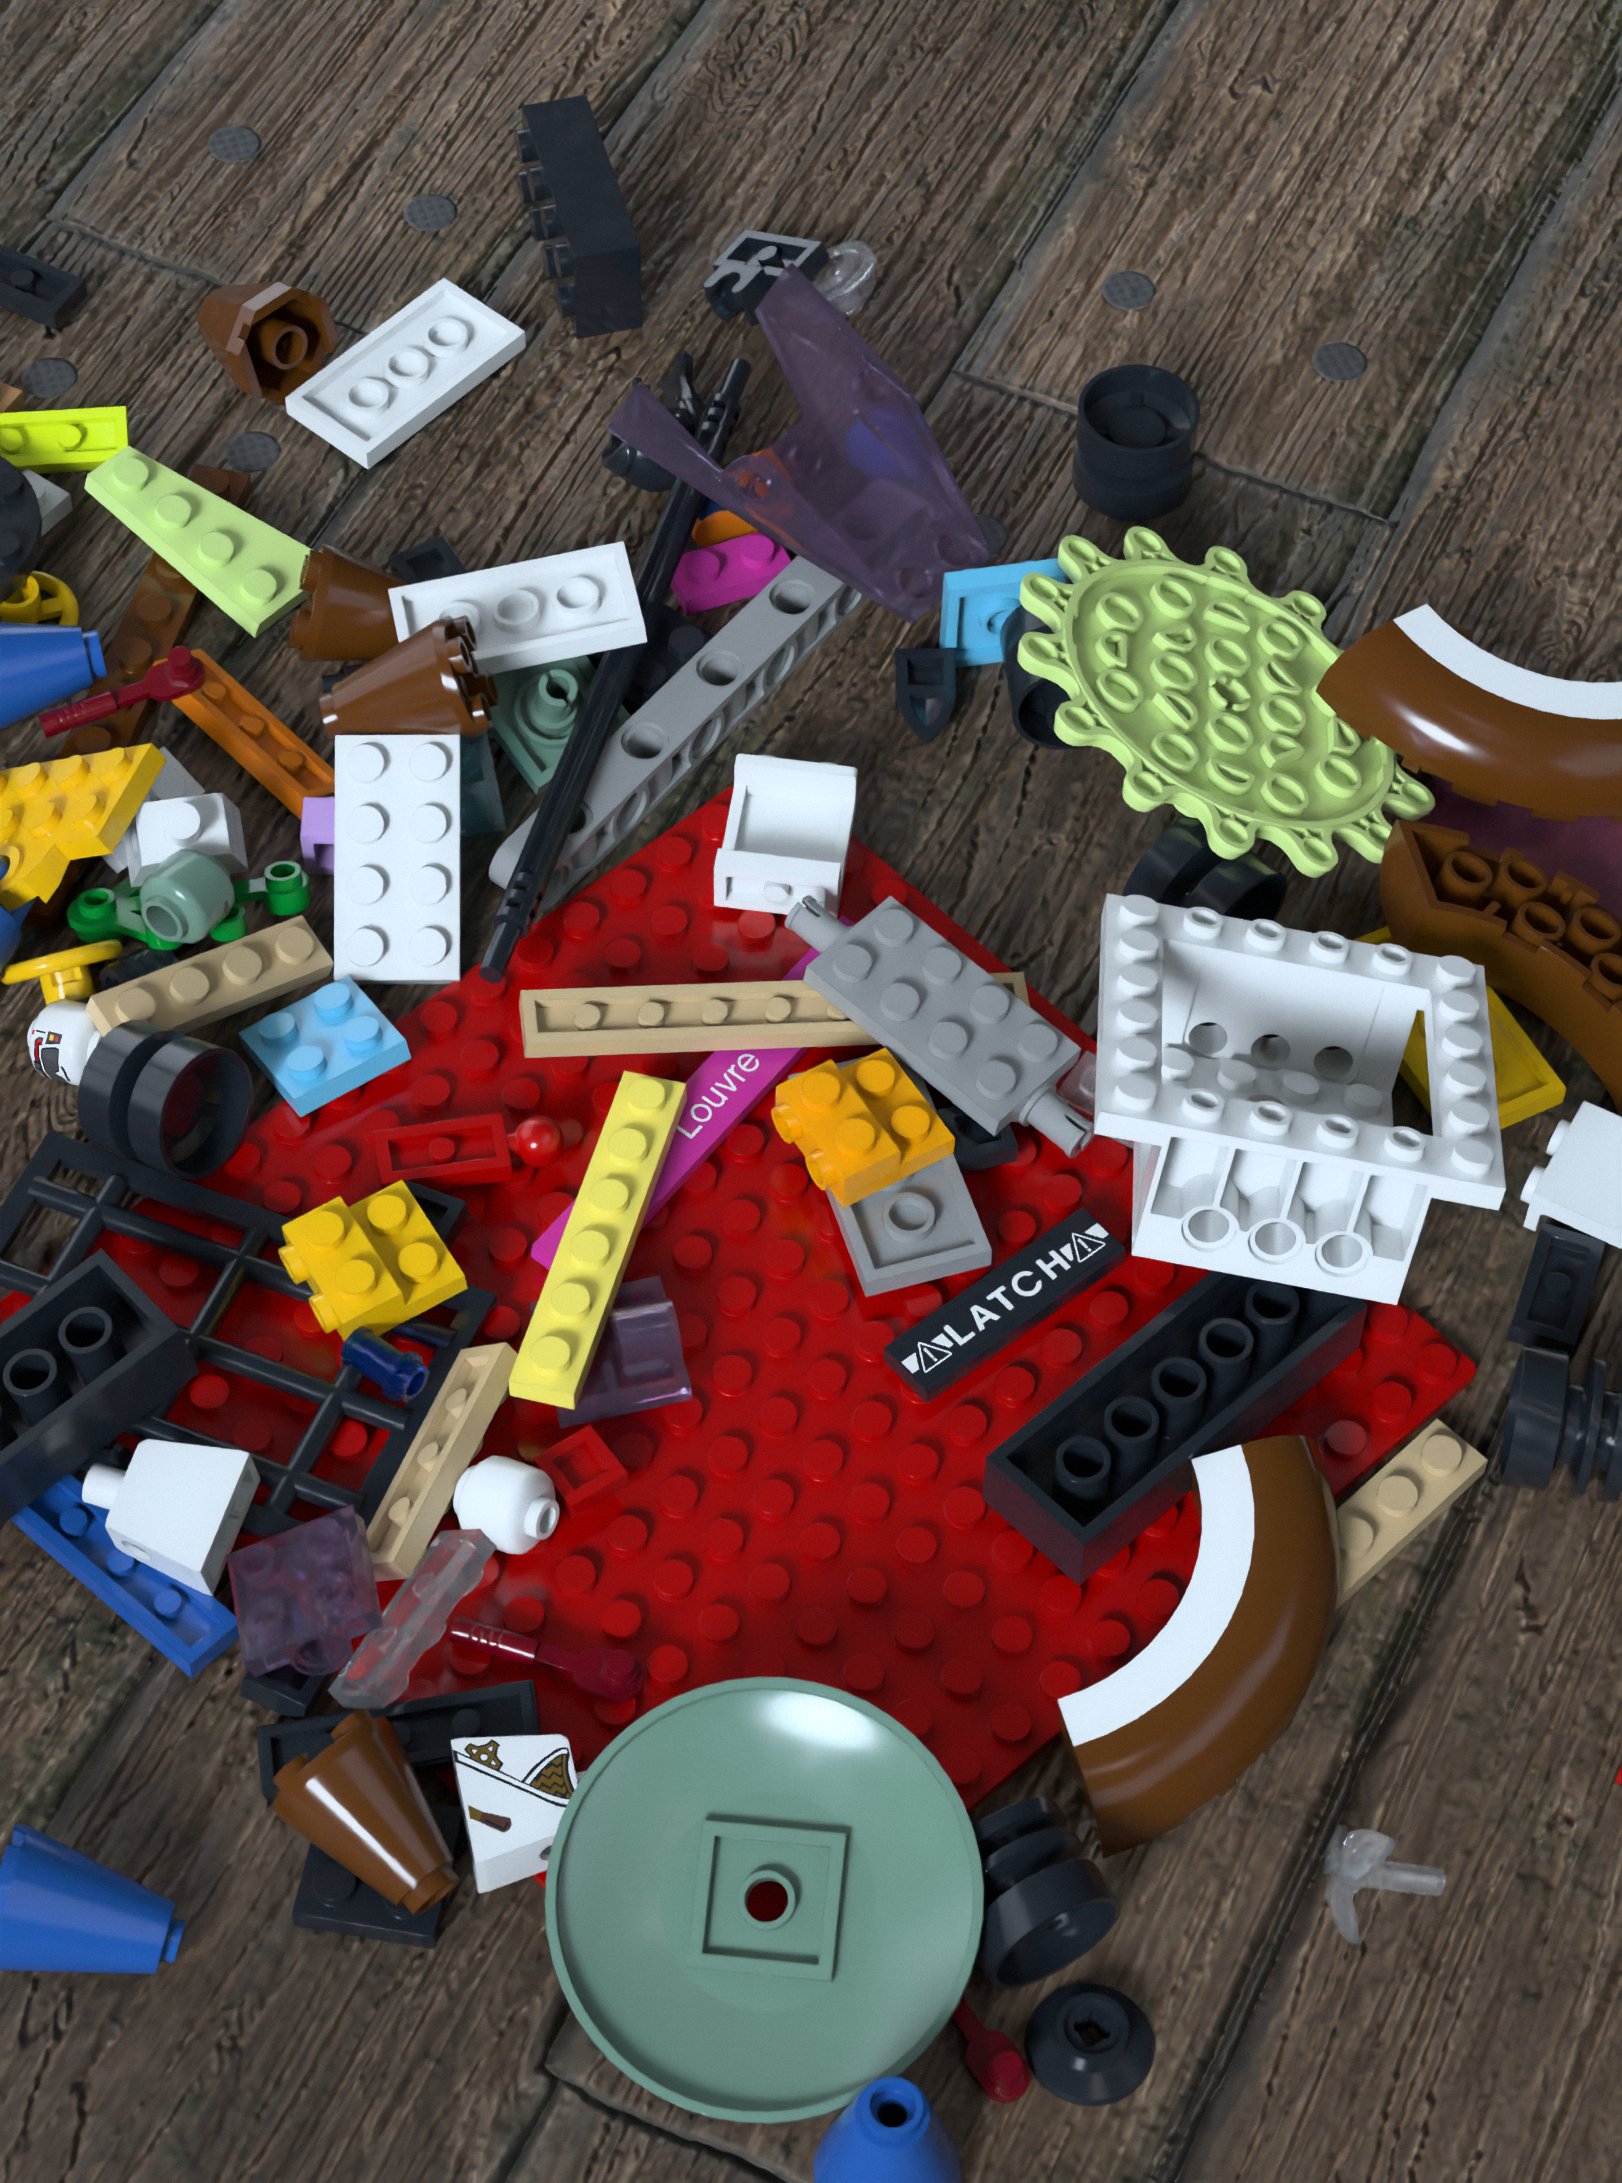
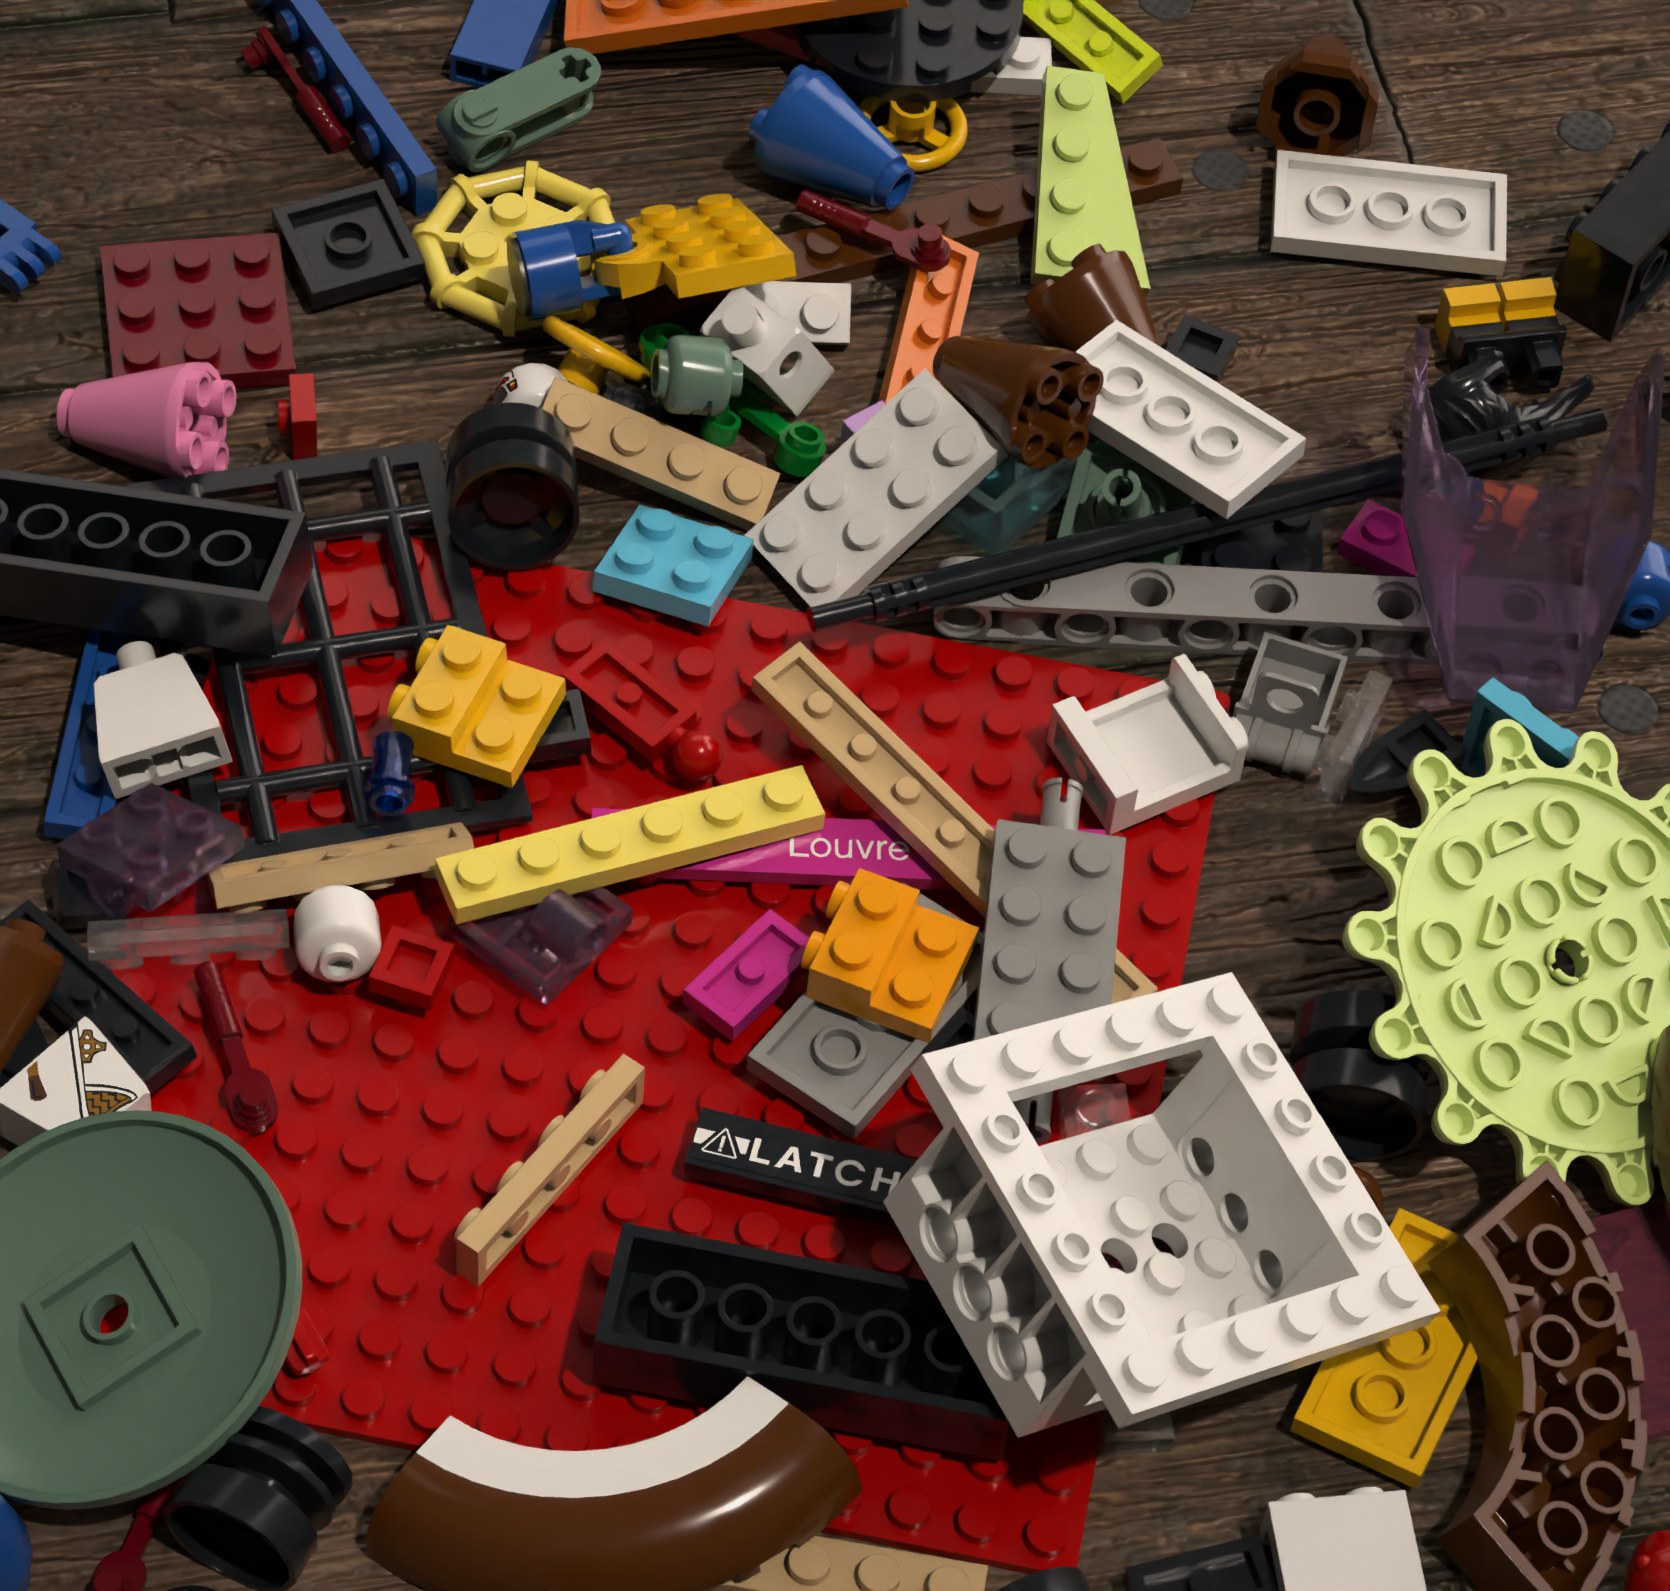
camera: 50 degrees right, 0 degrees up
(585, 378) = (1514, 320): none -> hips
(784, 1236) = (748, 975): none -> dark pink plate
(812, 722) = (1289, 702): none -> light grey piece
(868, 1509) = (561, 1155): none -> tan plate
(887, 719) = (1359, 717): none -> clear plate

